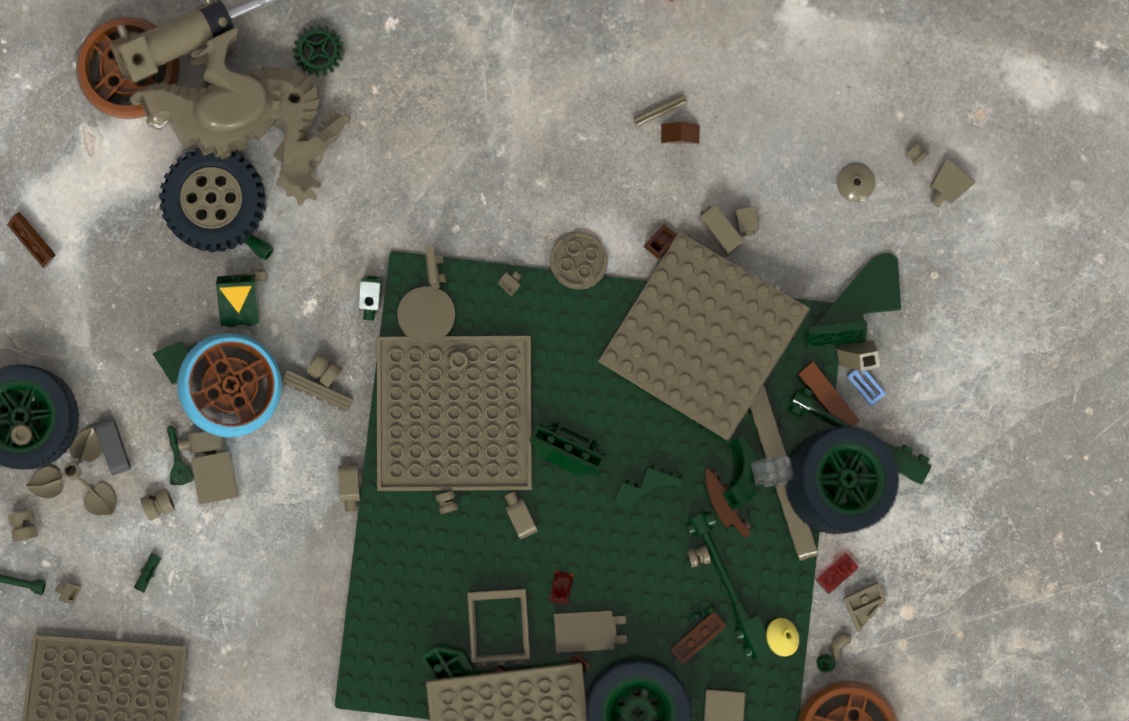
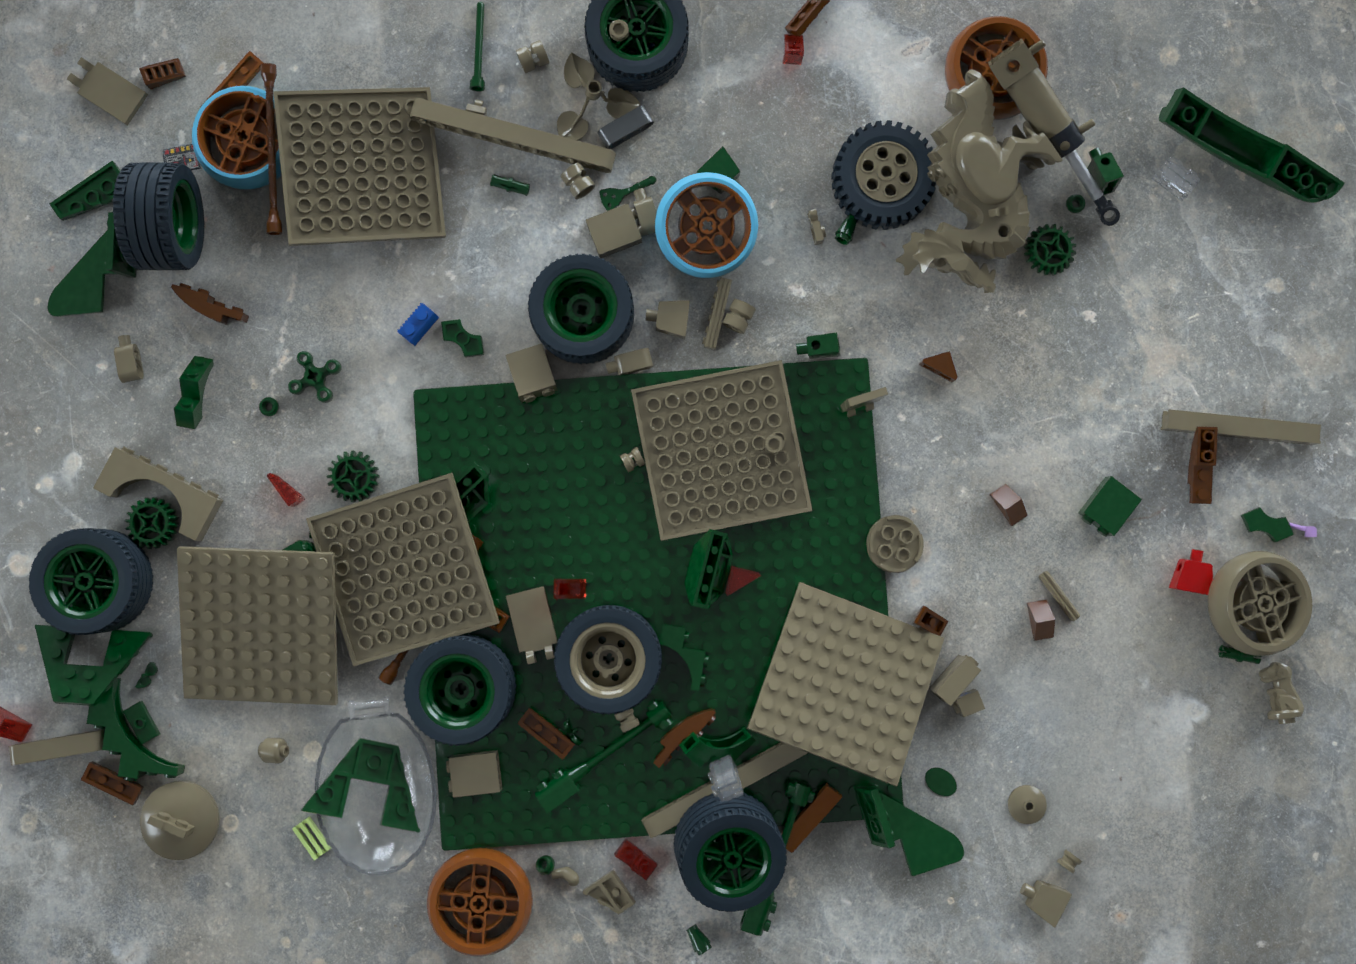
camera: 75 degrees right, 0 degrees up
(66, 263) = (793, 49): none -> clear red slope
(99, 560) = (512, 135): none -> dark tan beam
(238, 300) = (791, 218): dark green brick -> none
(256, 535) = (563, 280): none -> wheel
(270, 690) = (418, 324): none -> blue brick
(277, 9) = (1080, 201): none -> dark green plate
(285, 655) = (470, 344): none -> dark green tile
(313, 438) = (670, 317): none -> dark tan torso
(341, 586) = (531, 373): none -> dark tan brick
(412, 180) = (941, 365): none -> reddish brown slope
(426, 314) = (813, 404): dark tan tile -> none
(500, 659) = (489, 542): dark tan window -> none
(510, 283) = (860, 480): dark tan tile -> none
(520, 516) = (632, 534): dark tan piece -> none
(561, 141) = (1009, 504): none -> reddish brown slope
(582, 45) = (1109, 506): none -> dark green brick
(582, 420) = (738, 578): none -> clear red slope
(668, 574) = (575, 669): none -> wheel
(777, 639) = (562, 818): light yellow dish -> none
(818, 262) = (940, 781): none -> dark green sticker
(859, 356) = (856, 841): dark tan slope -> none
(861, 391) = (838, 840): light blue tile -> none
(925, 527) = (698, 940): none -> dark green cone

